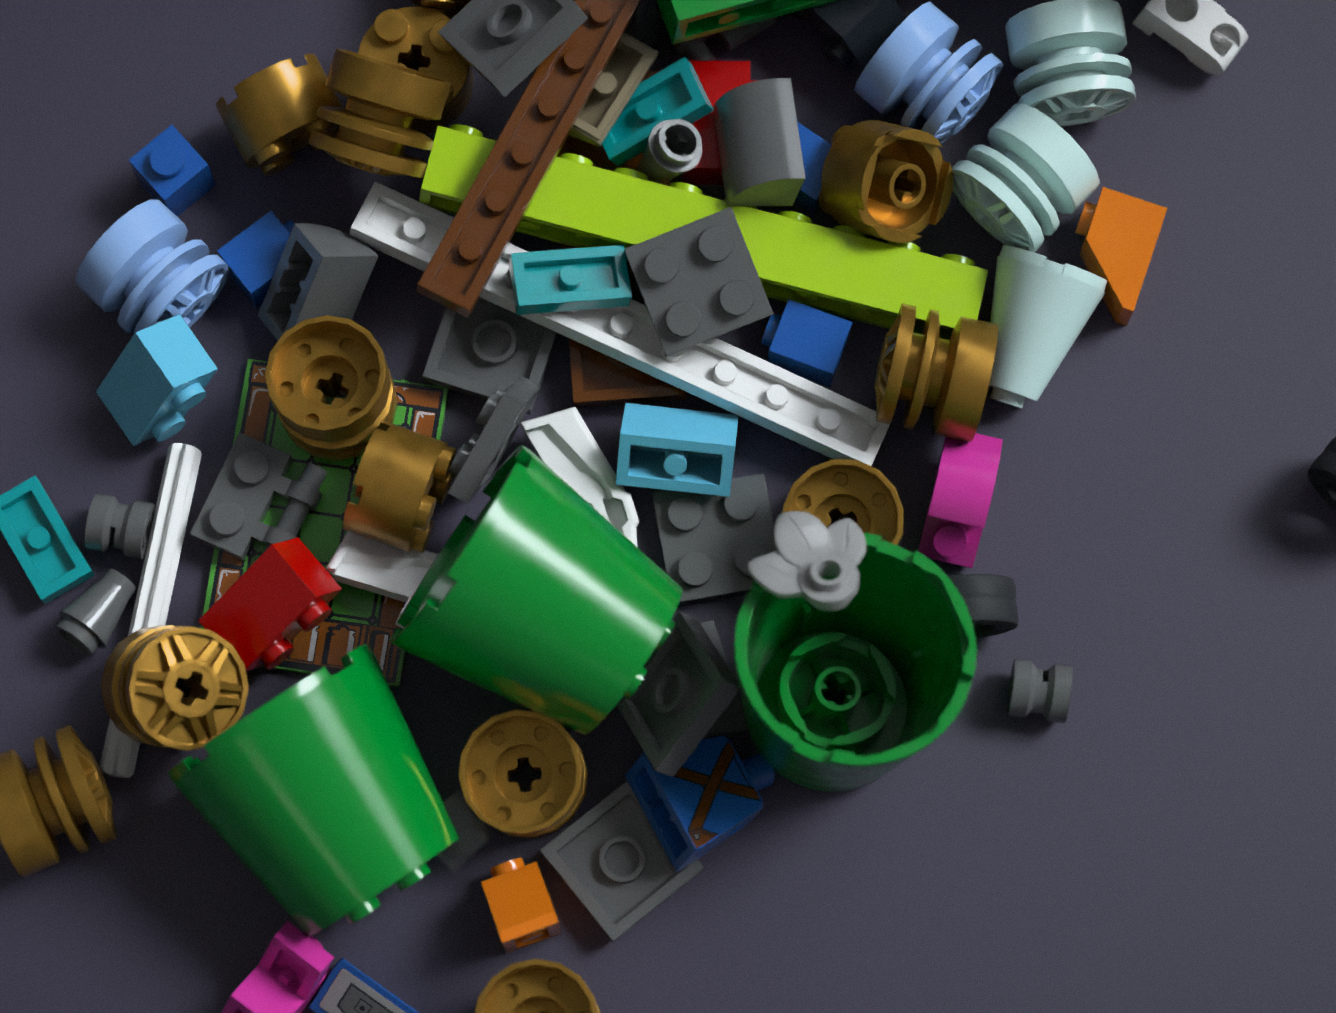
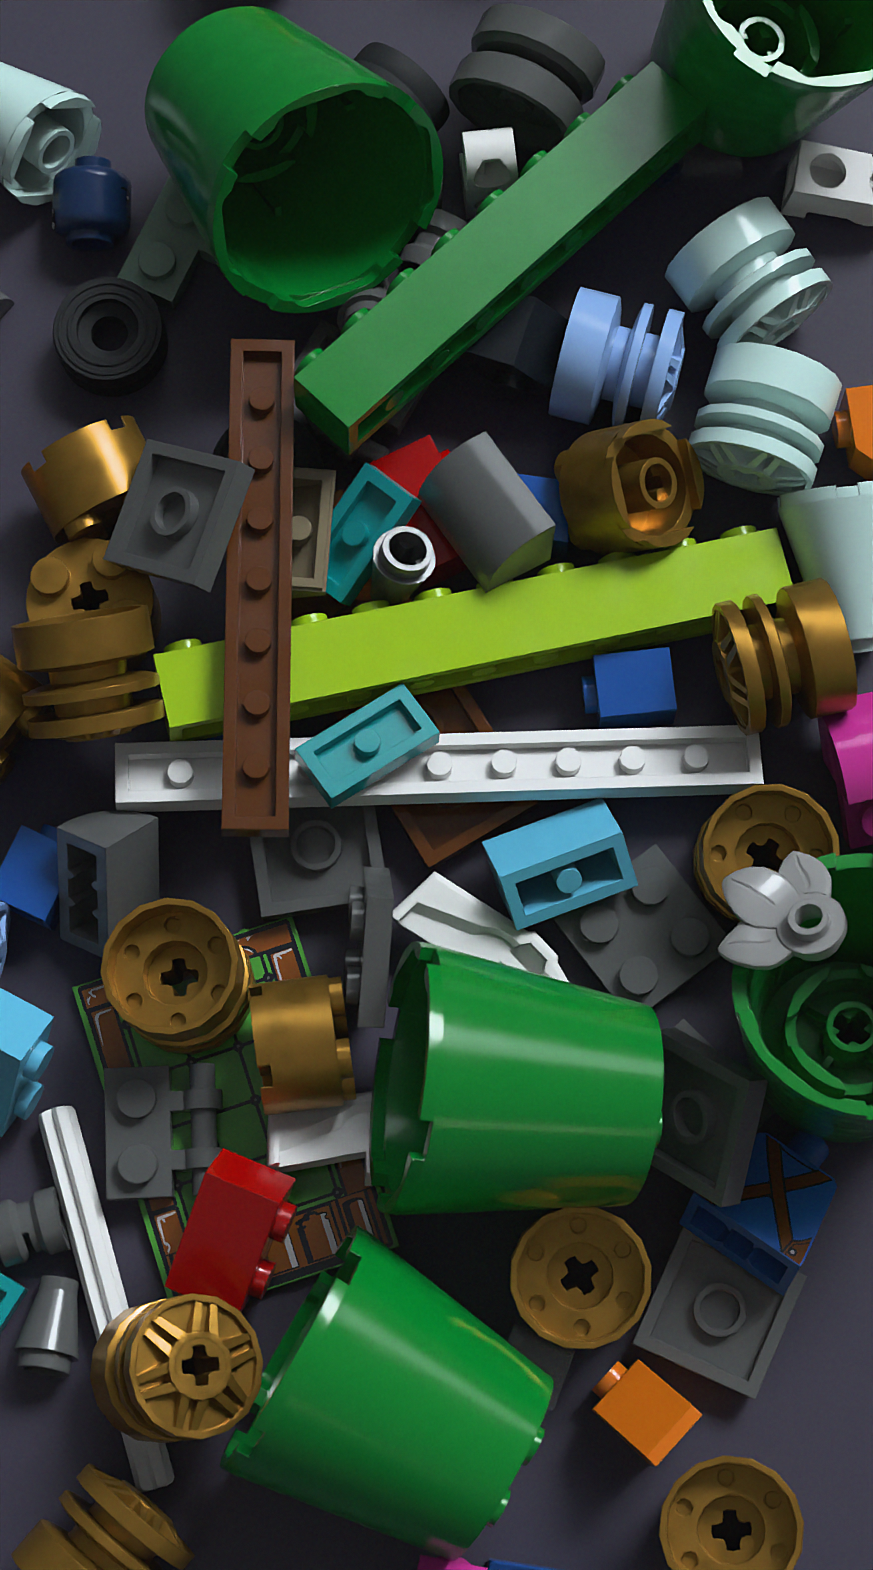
camera: 20 degrees left, 0 degrees up
(698, 281) = (498, 683): dark grey plate -> none

